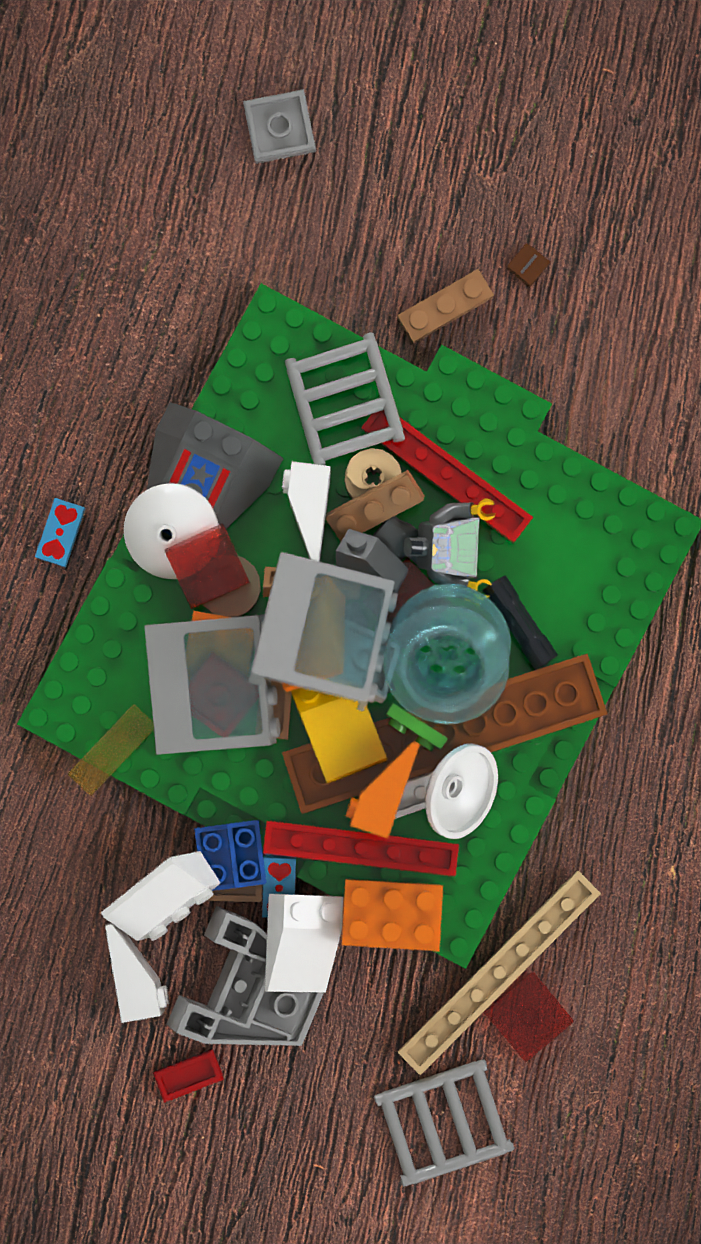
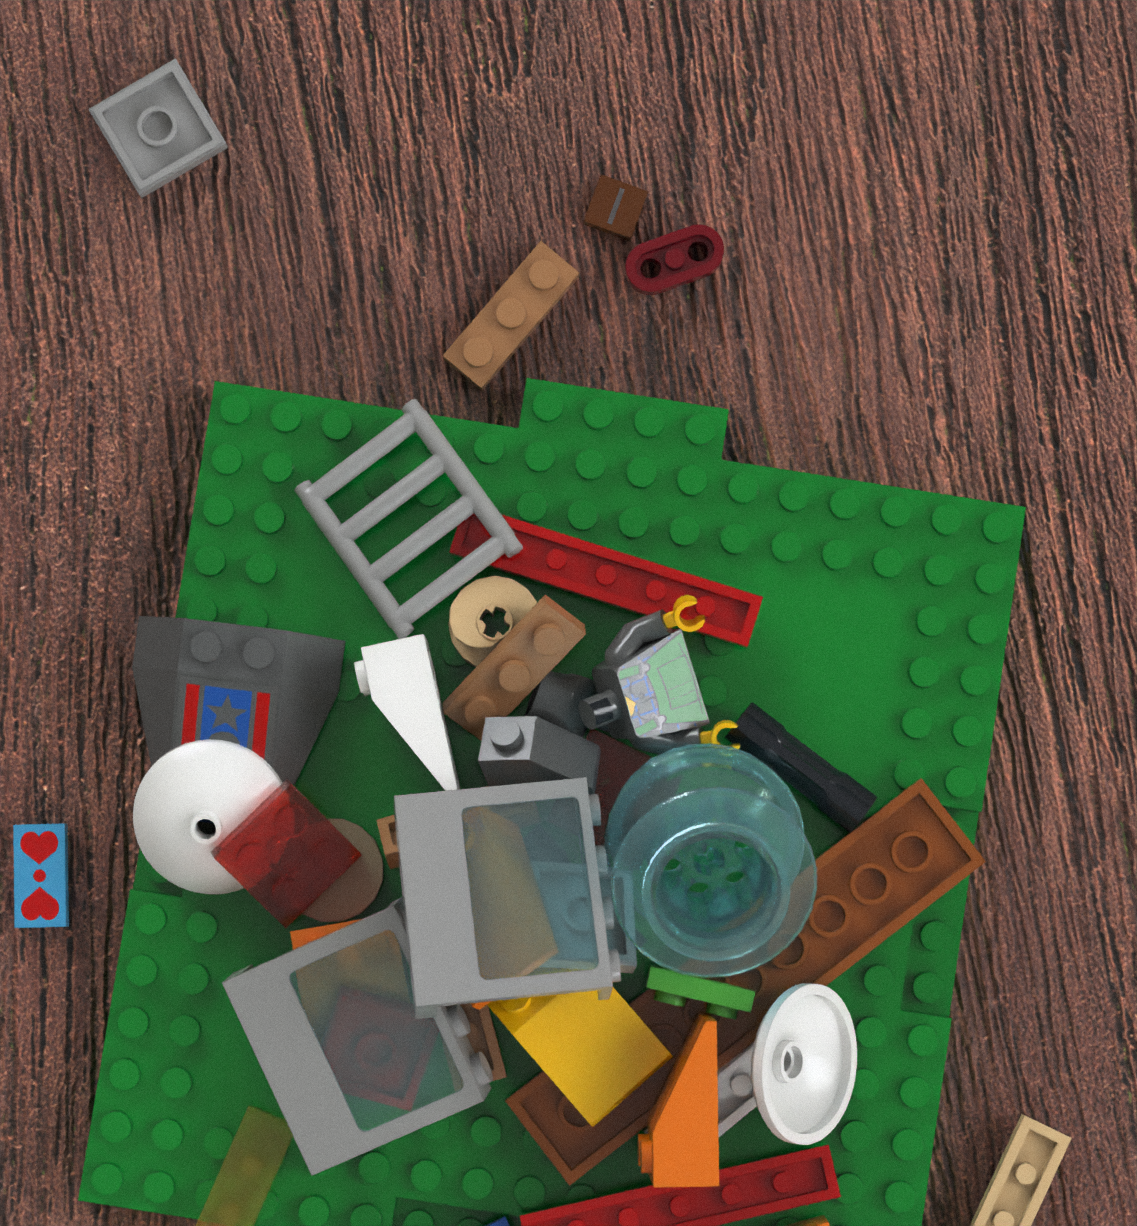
camera: 20 degrees left, 0 degrees up
(550, 304) = (672, 258): none -> dark red plate

